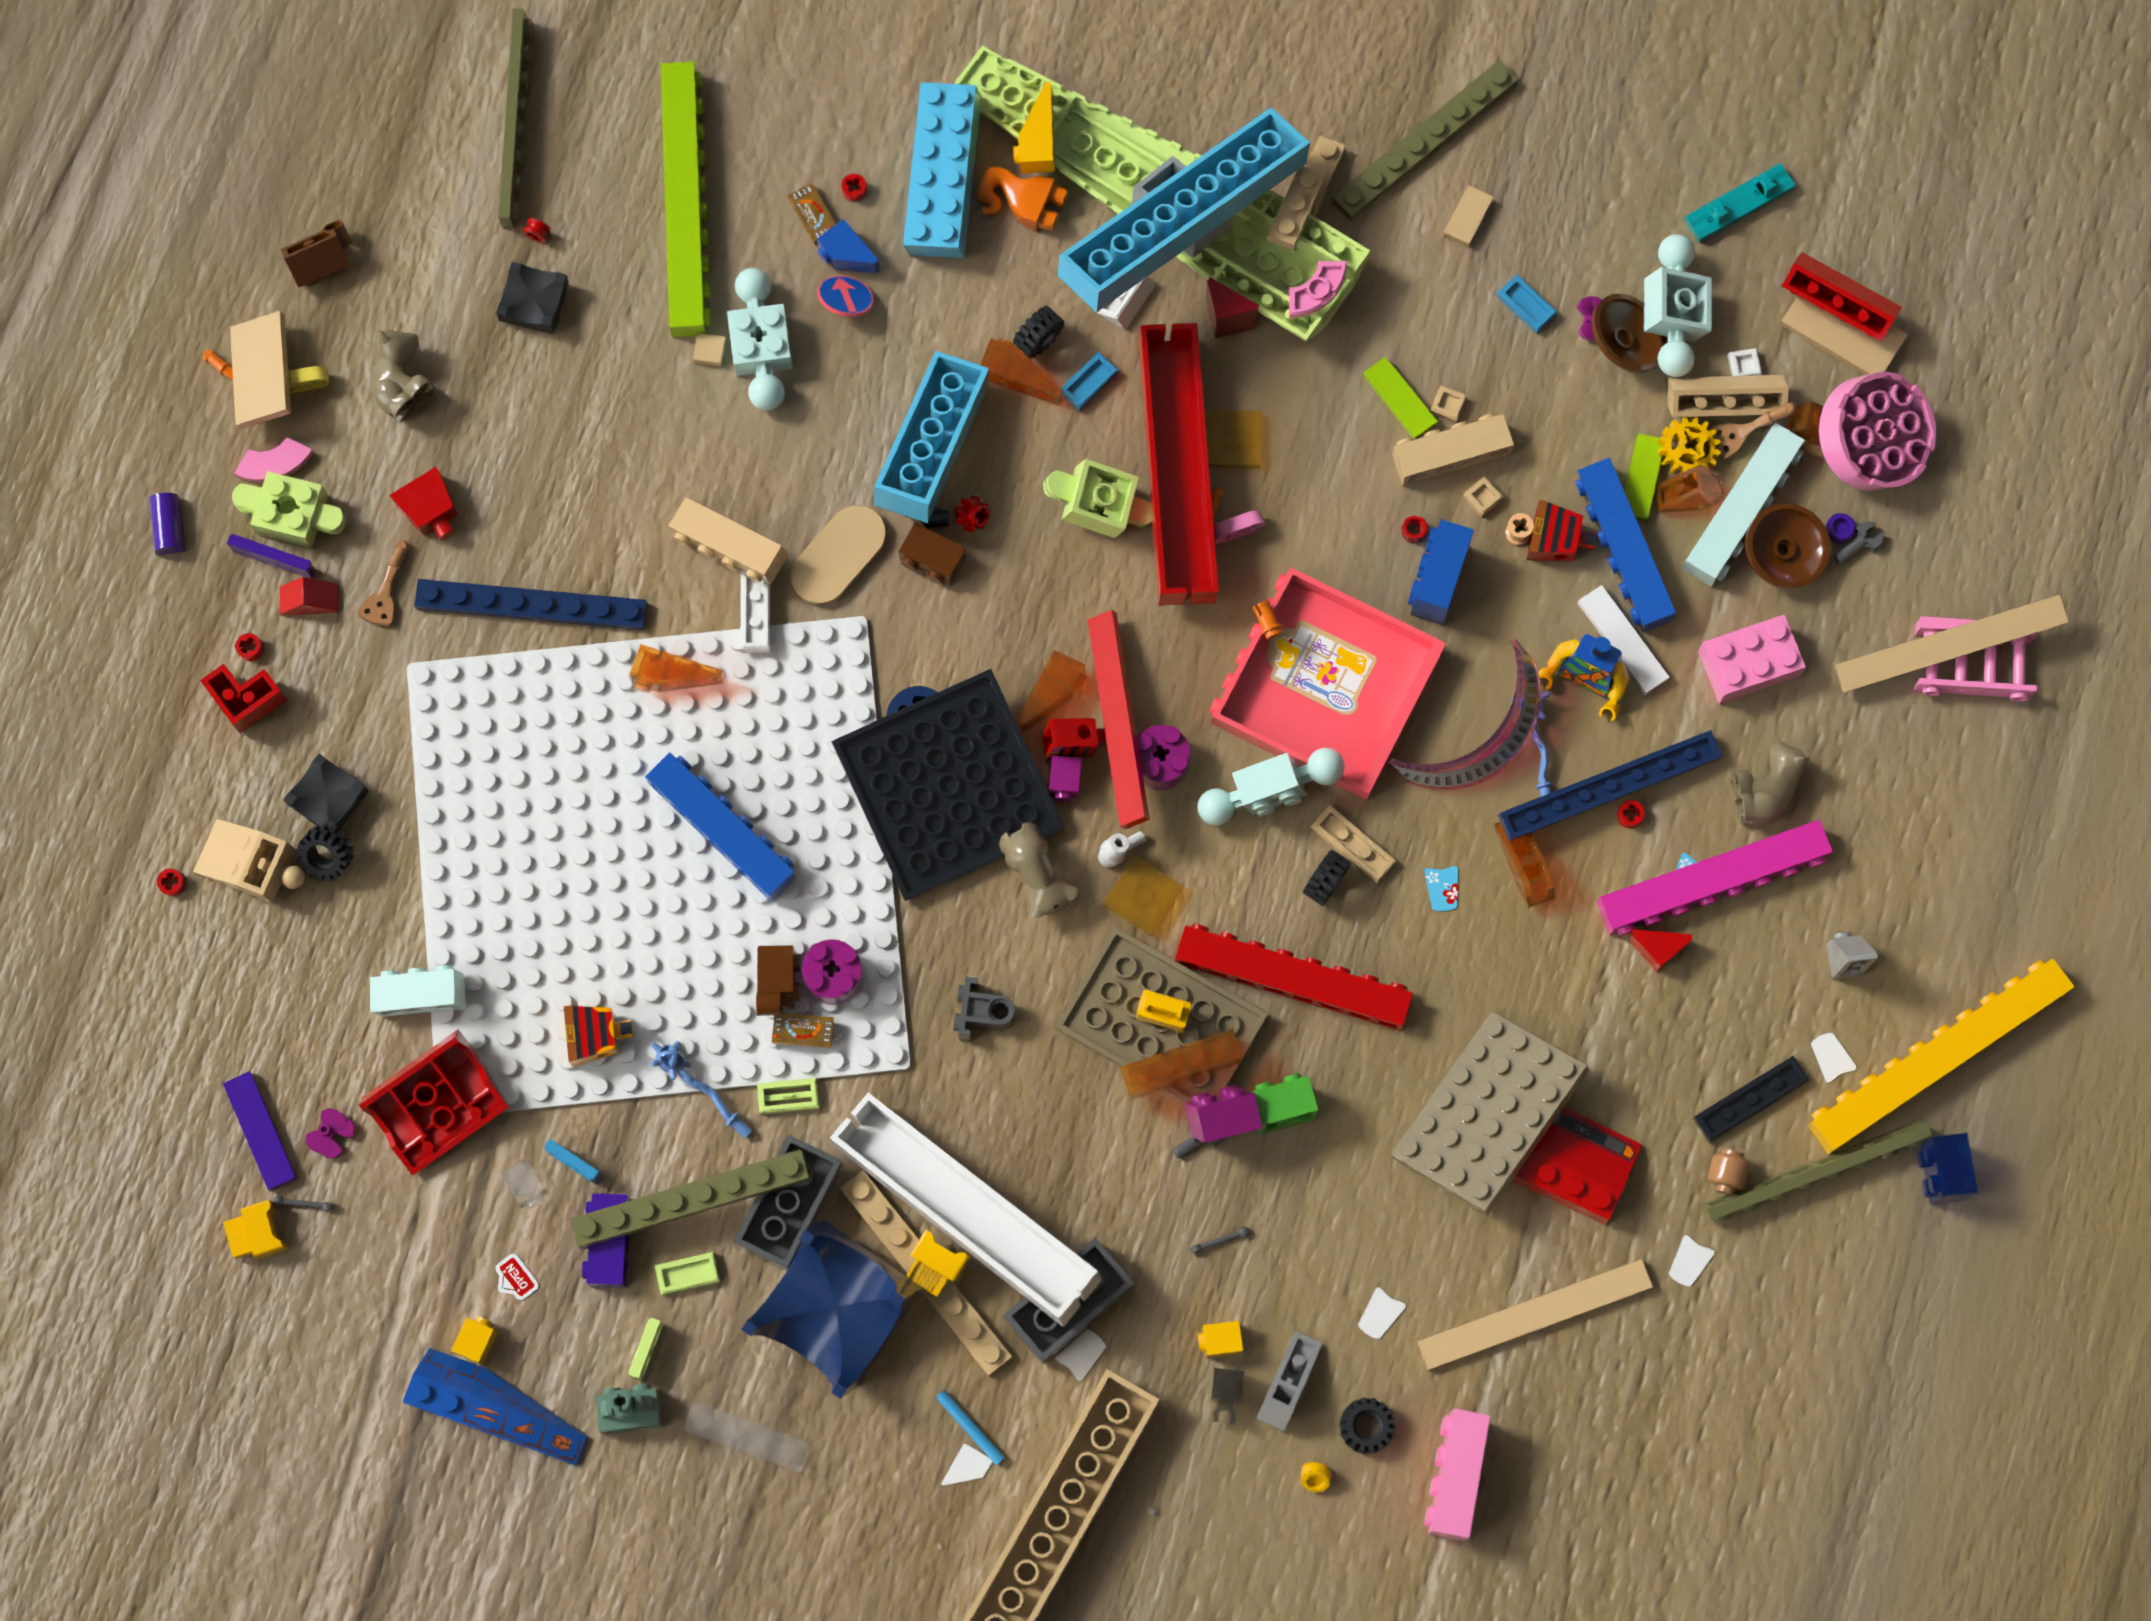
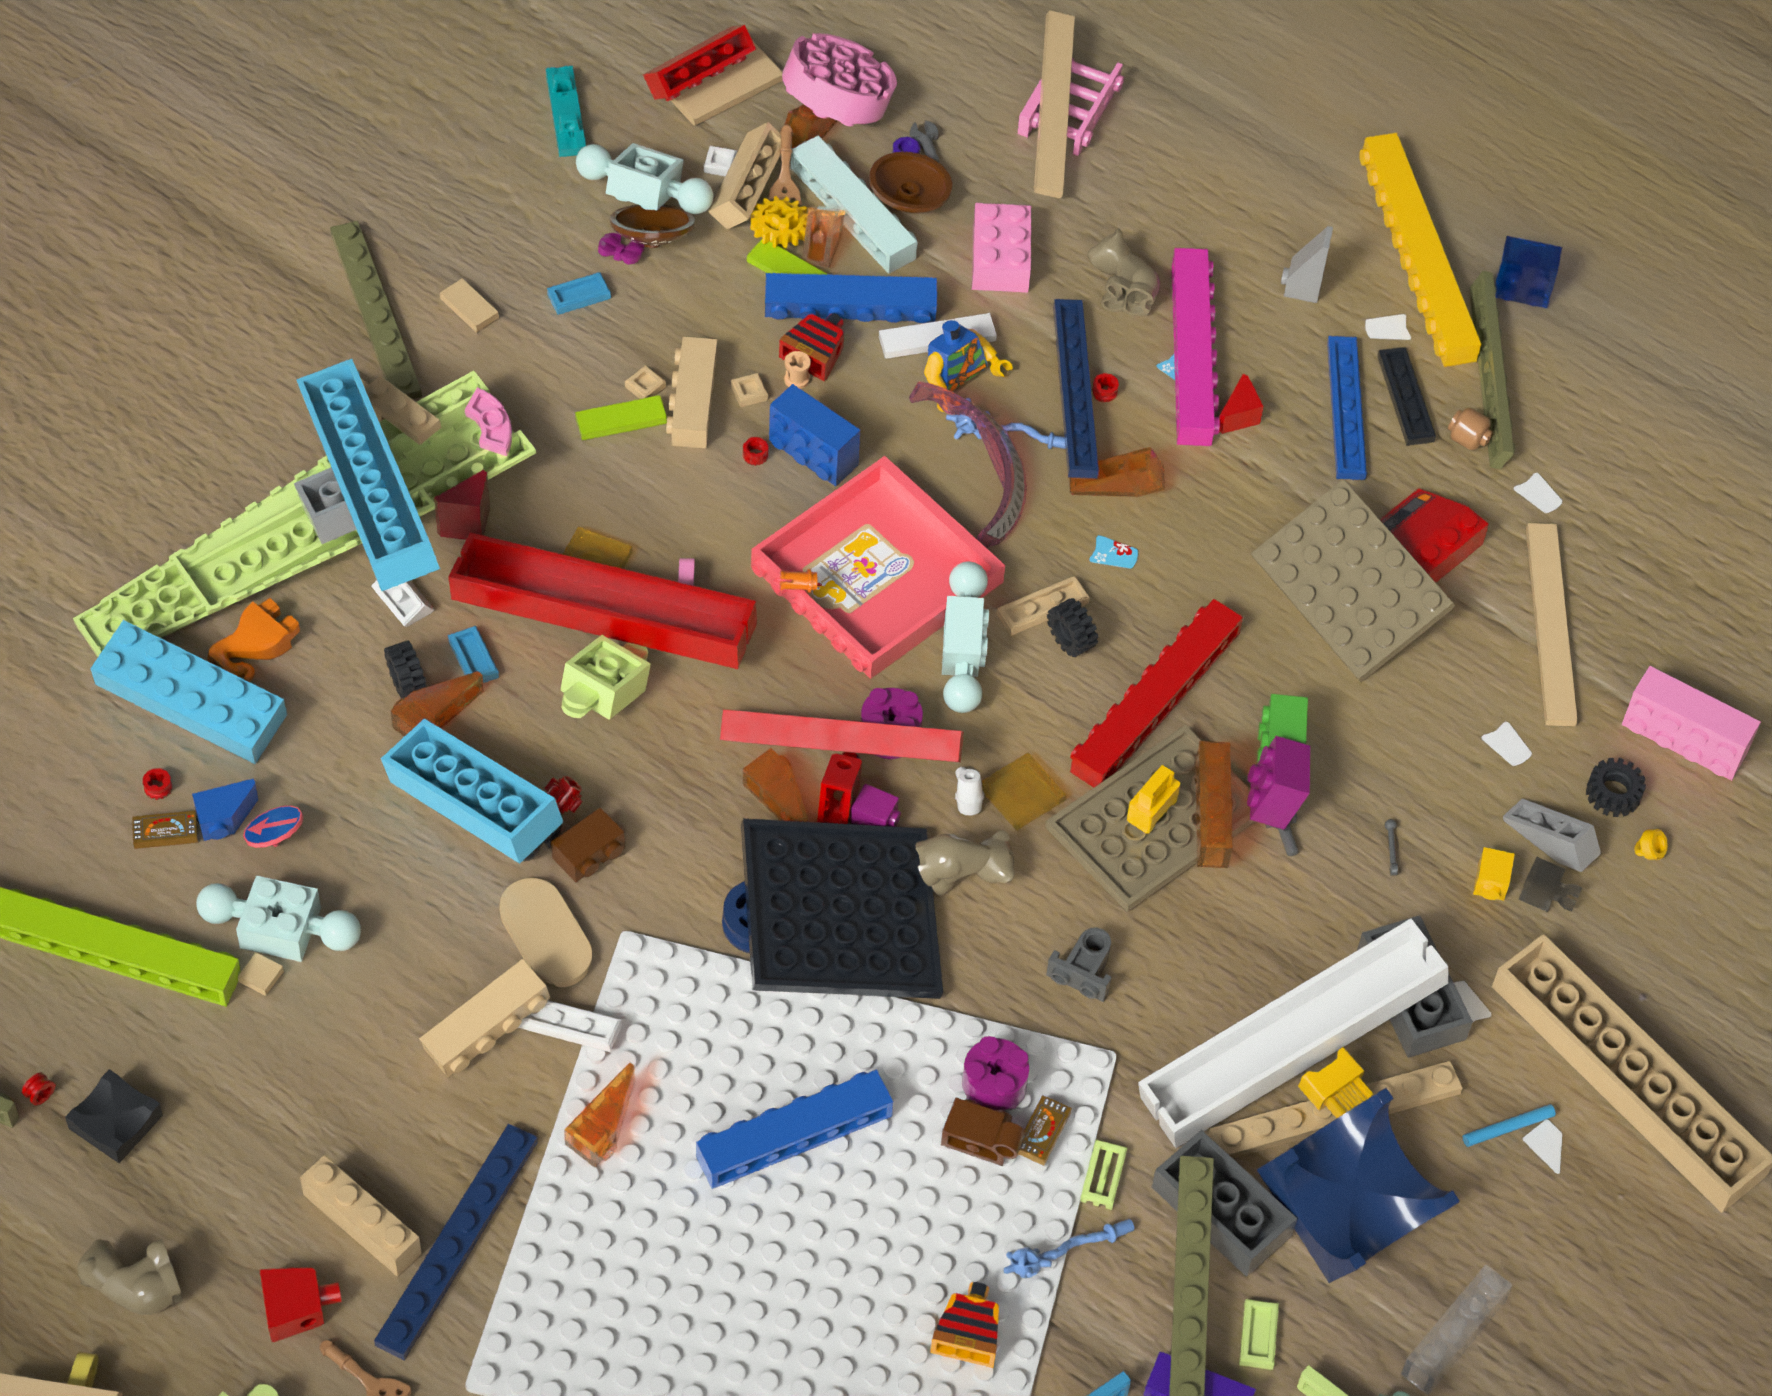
camera: 75 degrees left, 20 degrees down
(517, 521) = (361, 1216): none -> tan brick
(1036, 138) = (207, 595): yellow slope -> none
(1710, 1046) = (1346, 408): none -> blue tile

